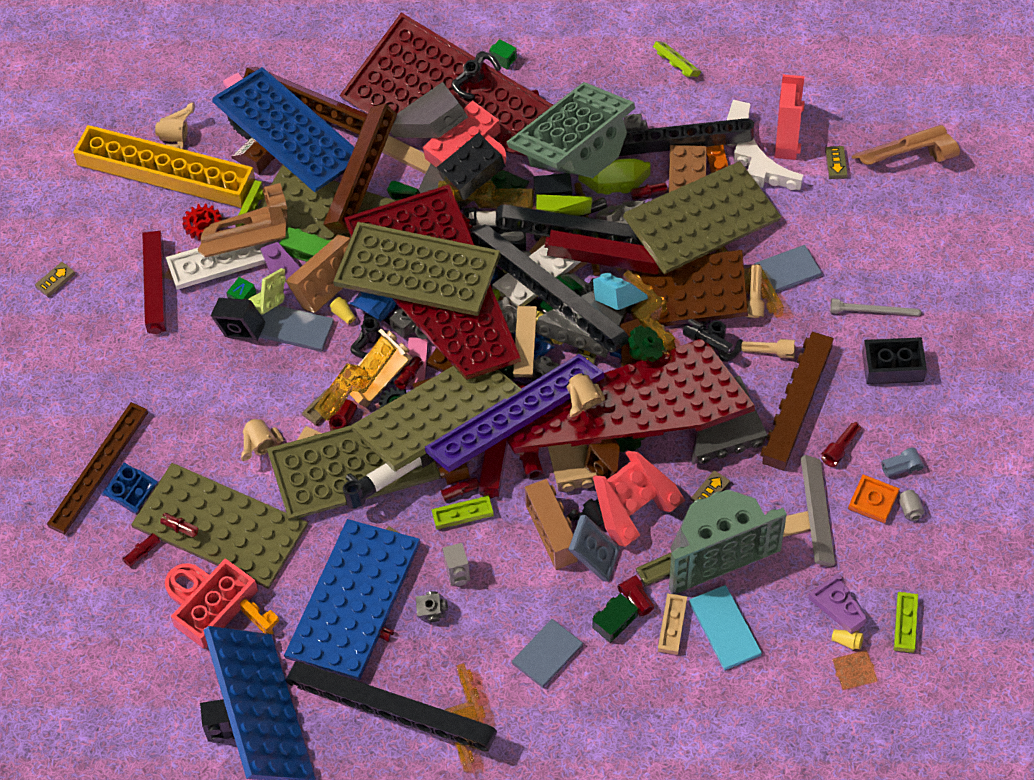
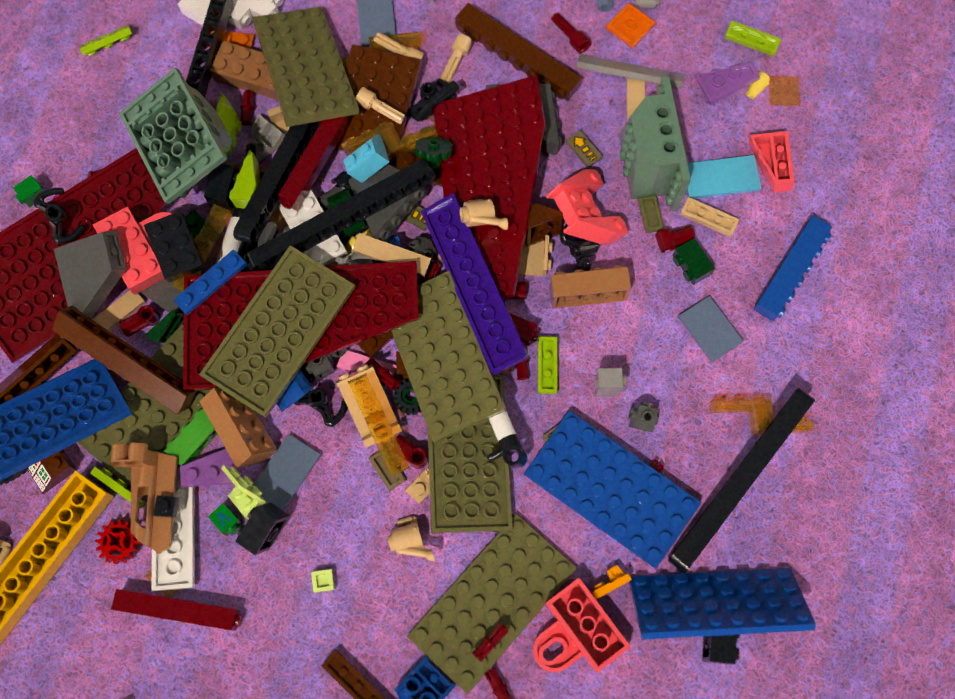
camera: 75 degrees left, 15 degrees up
(205, 383) = (322, 581): none -> yellowish green plate
(238, 241) = (166, 506): none -> black plate
(342, 310) = (282, 422): light yellow cone -> none
(405, 173) = (138, 320): none -> dark red piece
(448, 204) = (210, 282): none -> blue plate
(594, 548) = (627, 256): sand blue tile -> none
(639, 716) = (792, 269): none -> blue brick
(683, 279) = (368, 100): none -> tan piece
(758, 671) = (774, 159): none -> coral wedge

